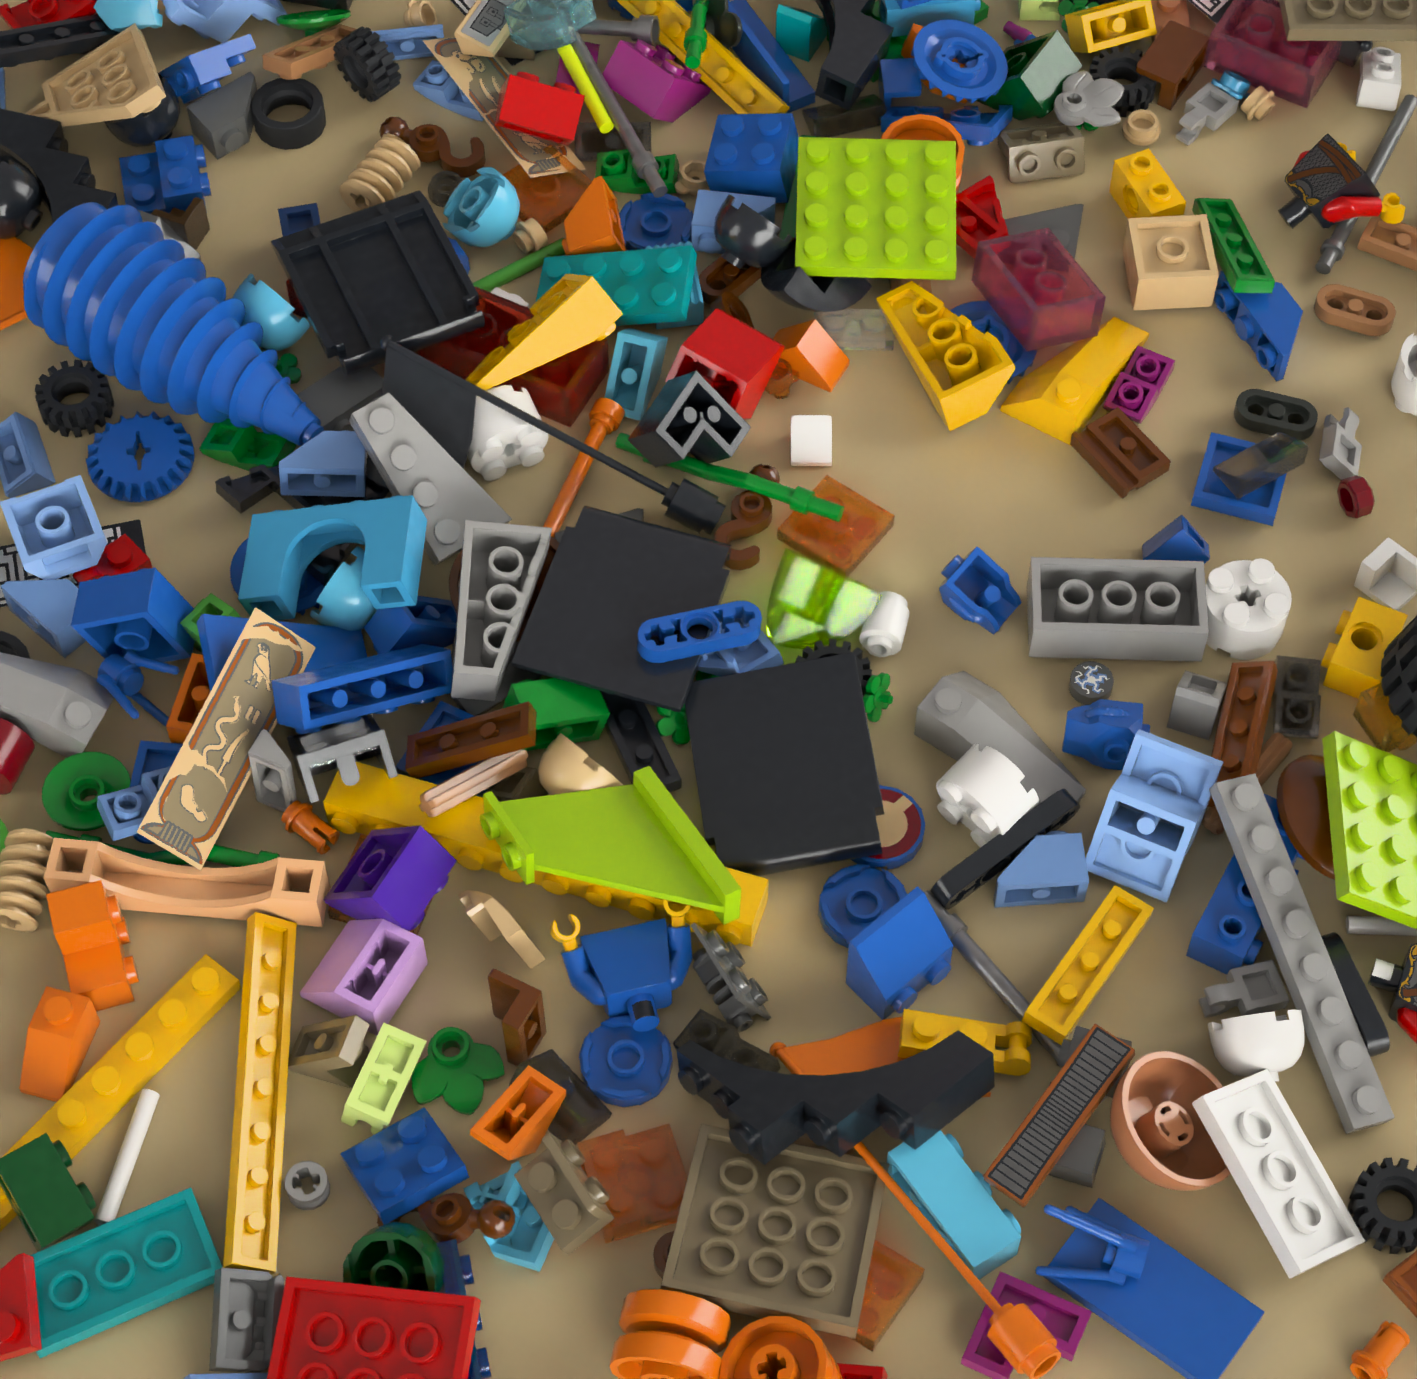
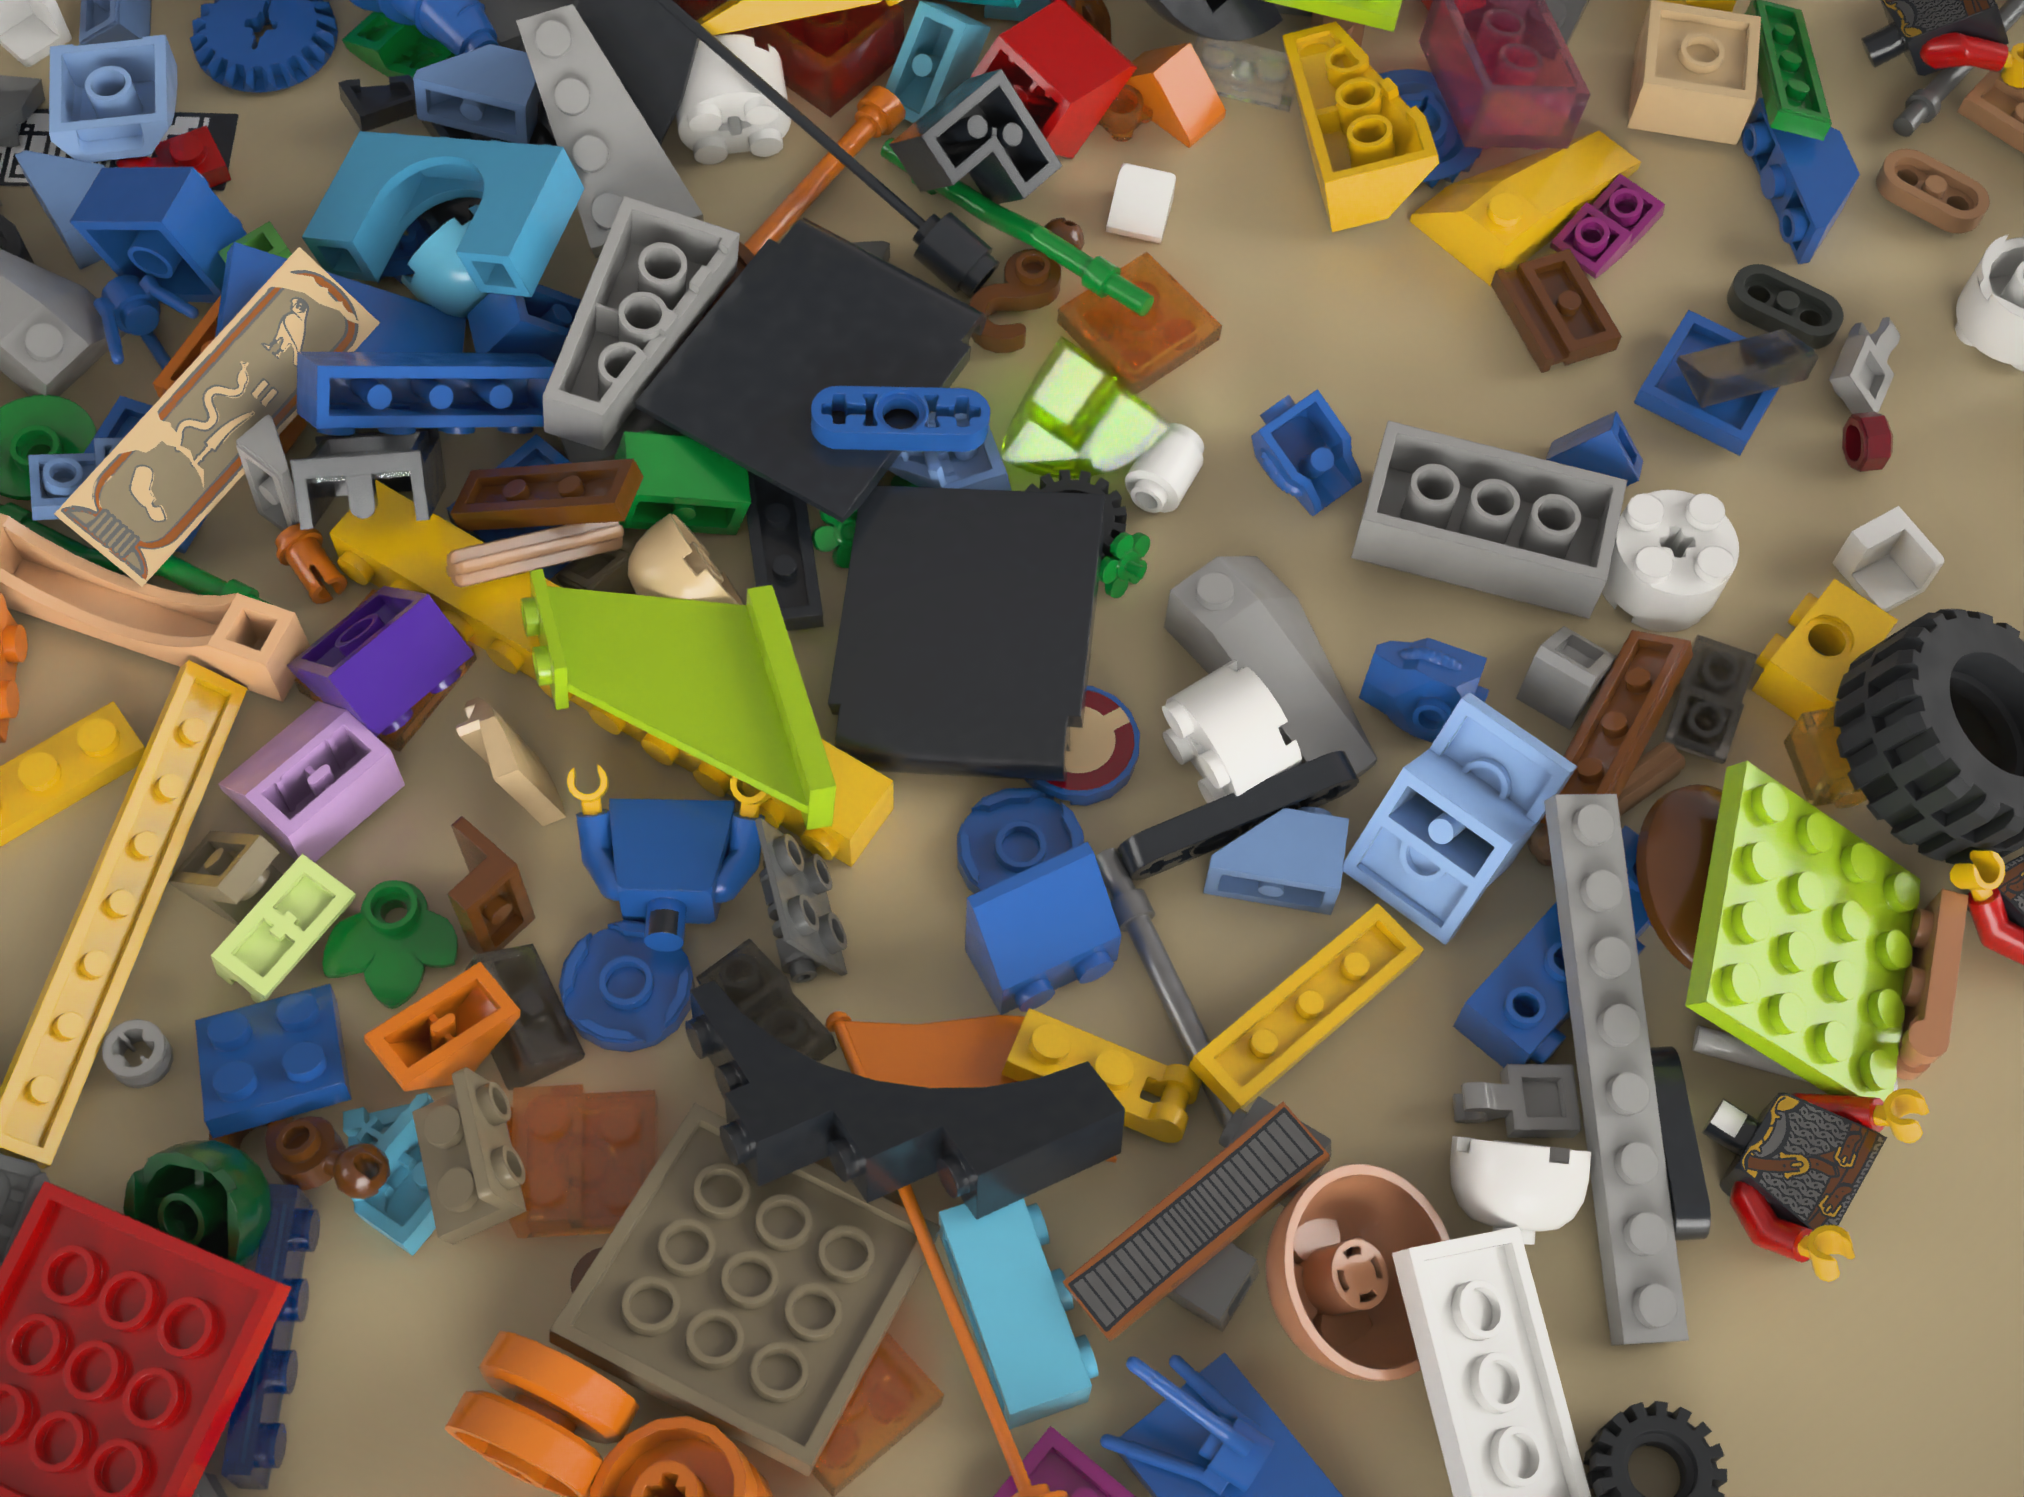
camera: 10 degrees right, 5 degrees up
(1091, 682) = (1427, 612): dark grey tile -> none

